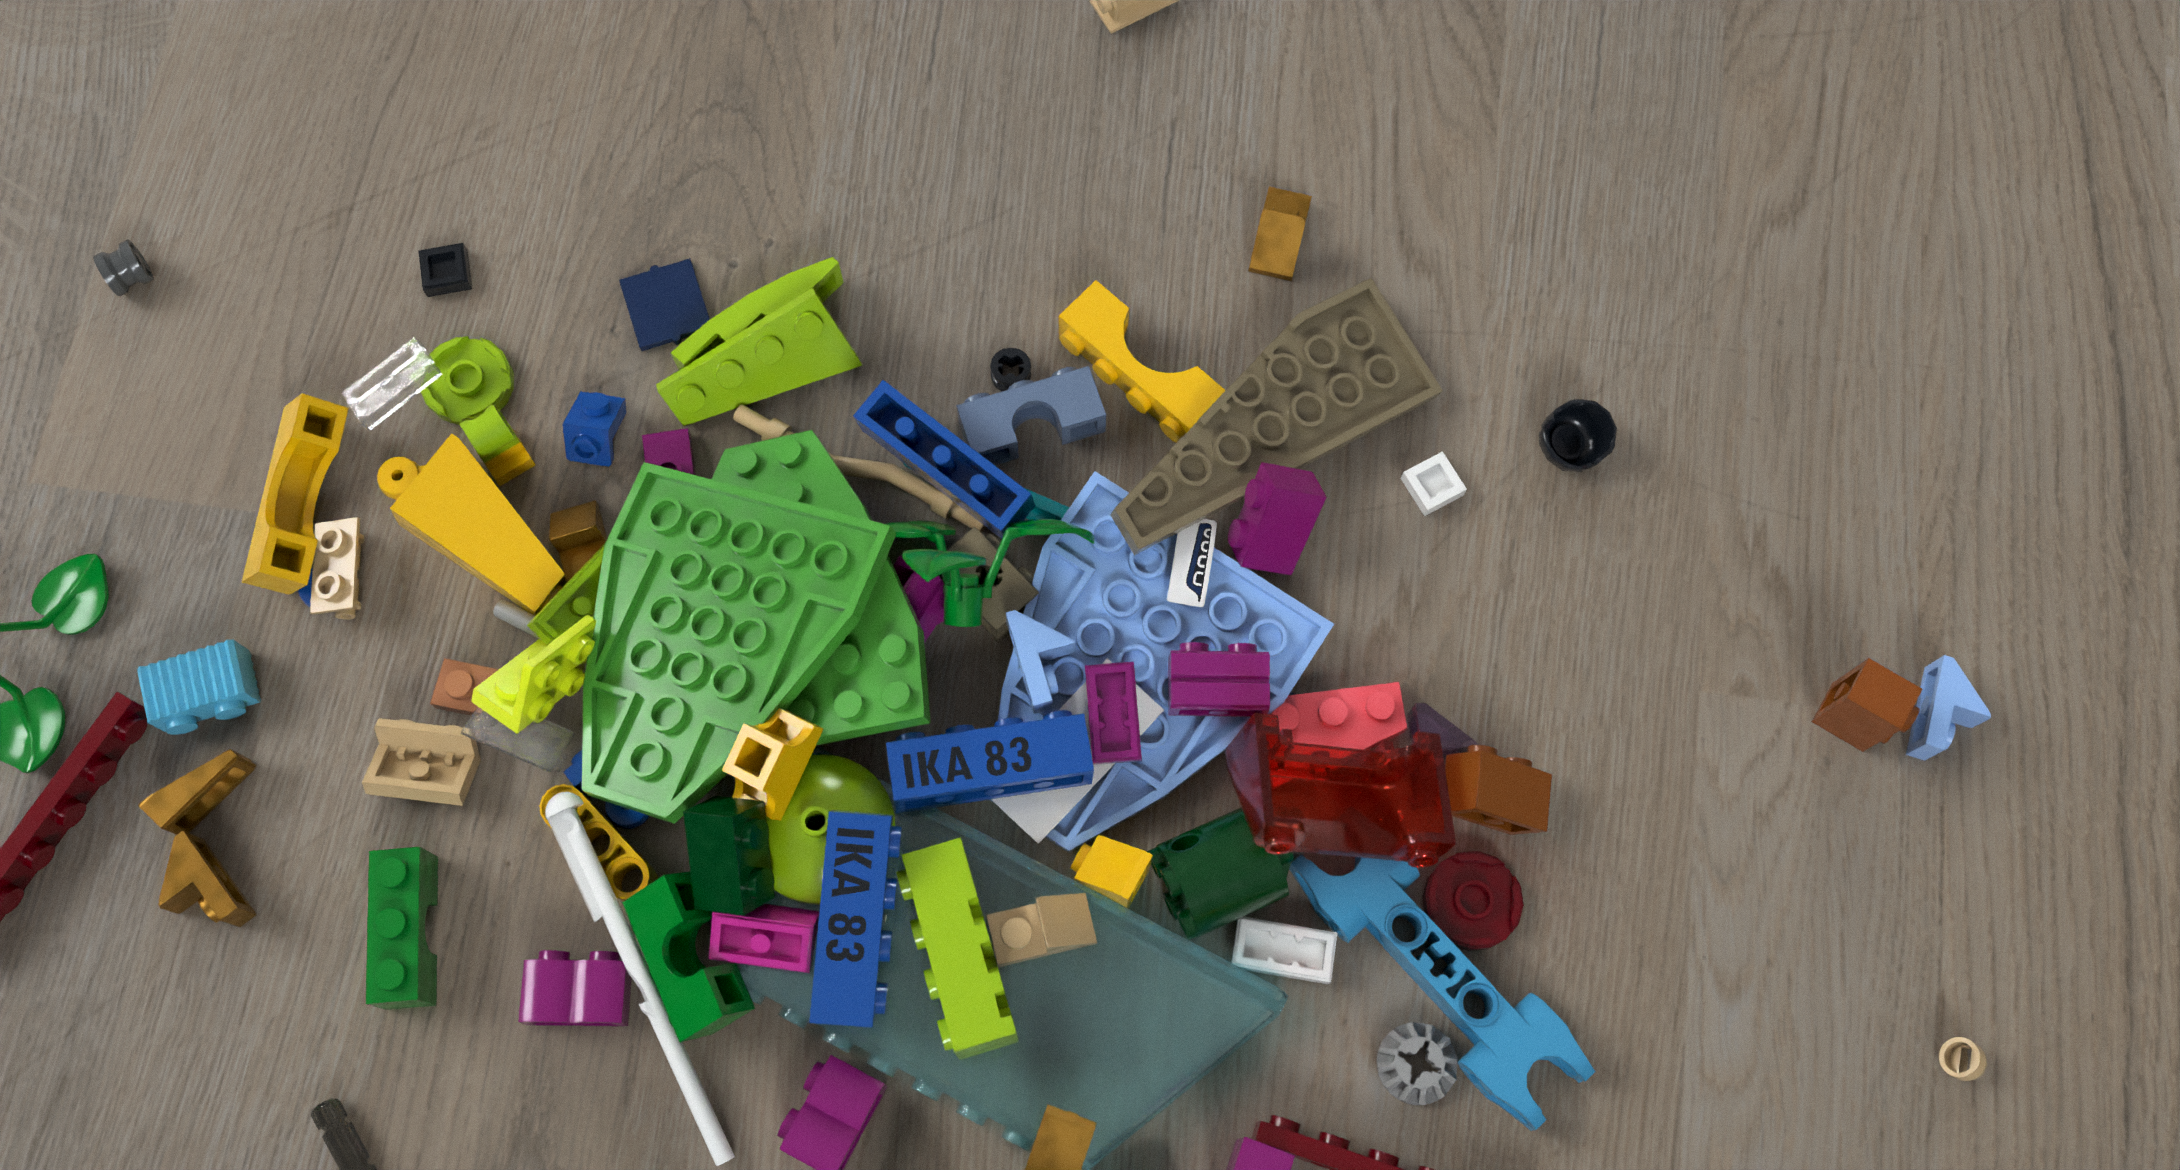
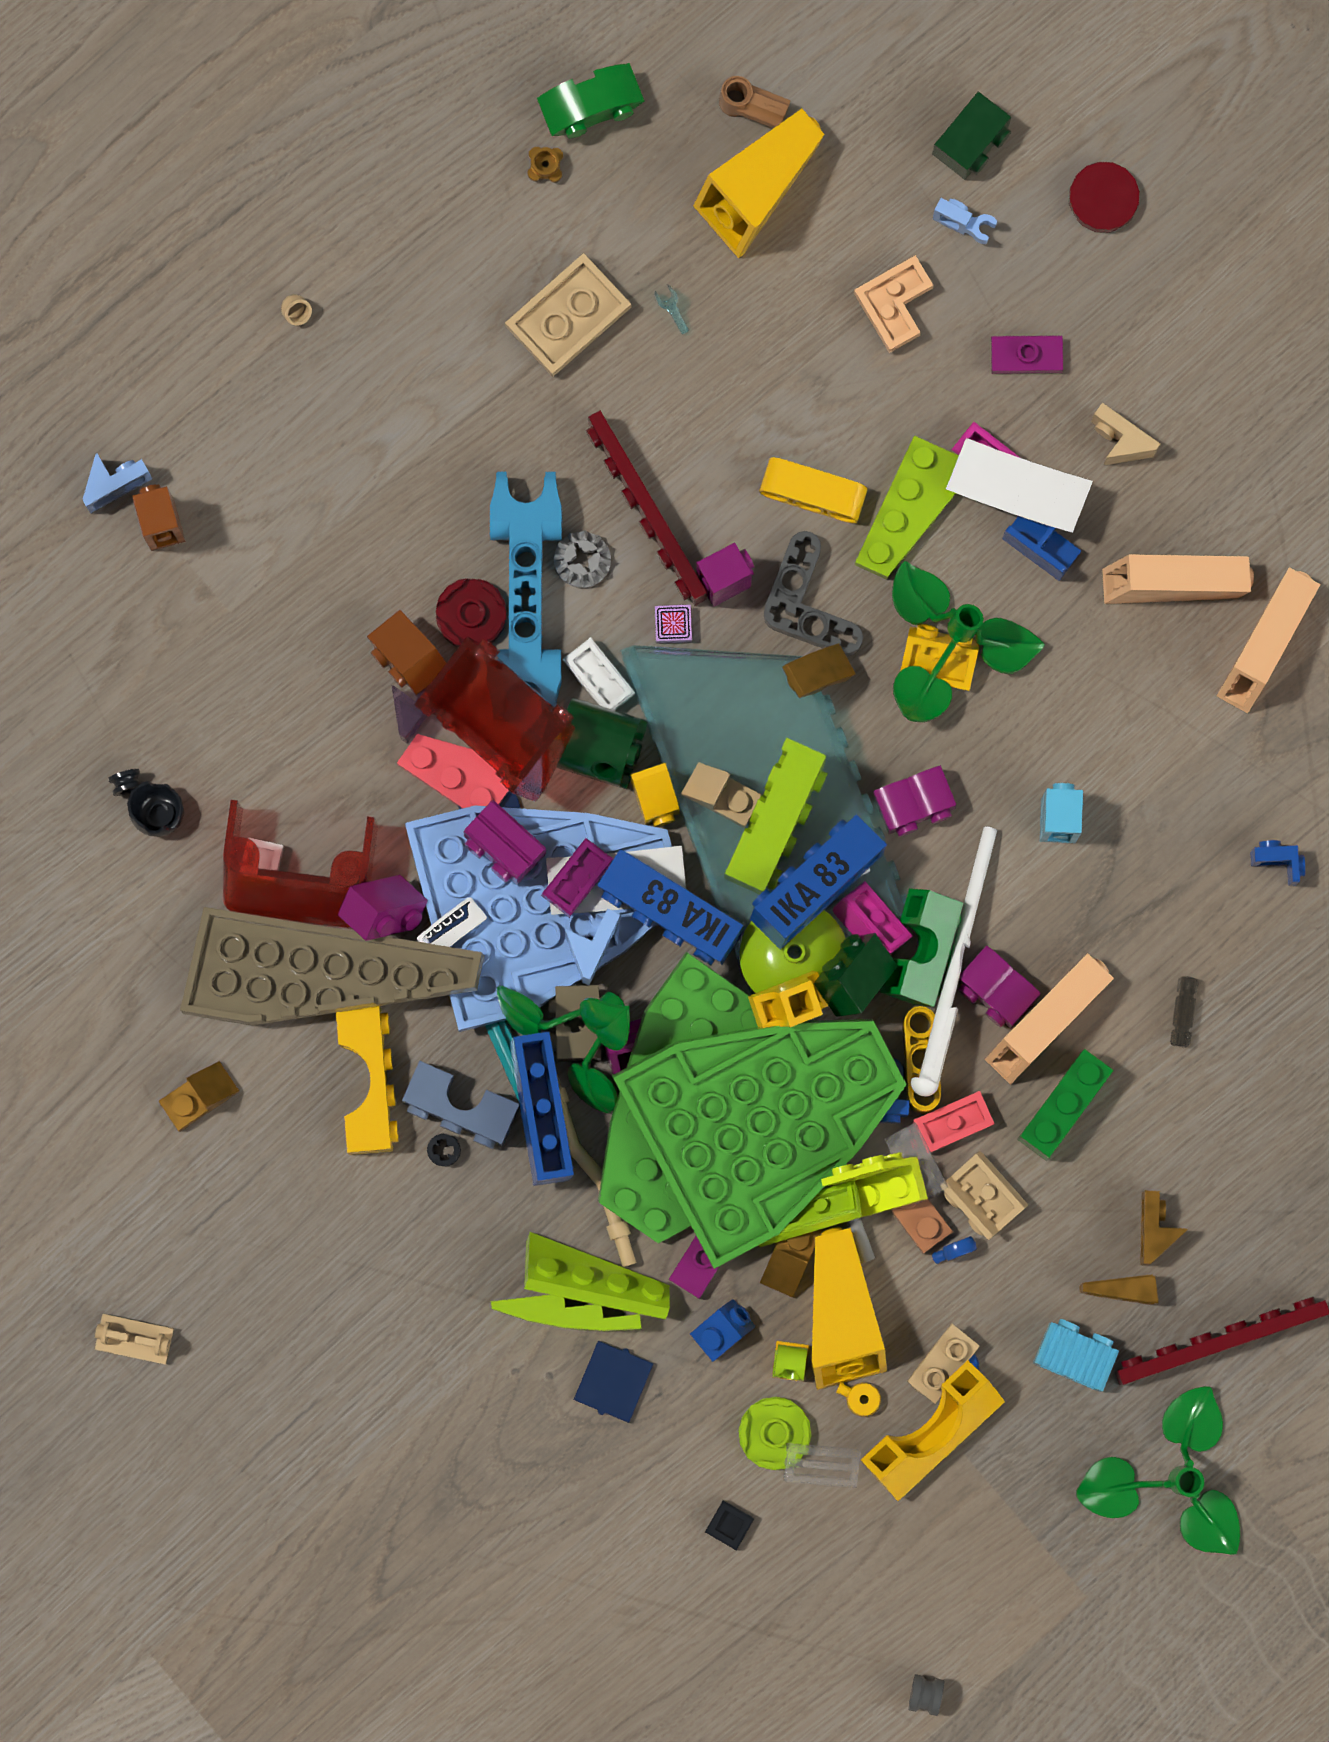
camera: 135 degrees left, 10 degrees up
(411, 689) = (955, 1250): none -> blue piece
(486, 1007) = (1049, 1018): none -> light nougat slope
(513, 813) = (955, 1121): none -> coral plate
(1260, 1080) = (673, 624): none -> tile
(1379, 461) = (290, 894): none -> clear red windscreen
(1628, 440) = (125, 781): none -> black bush

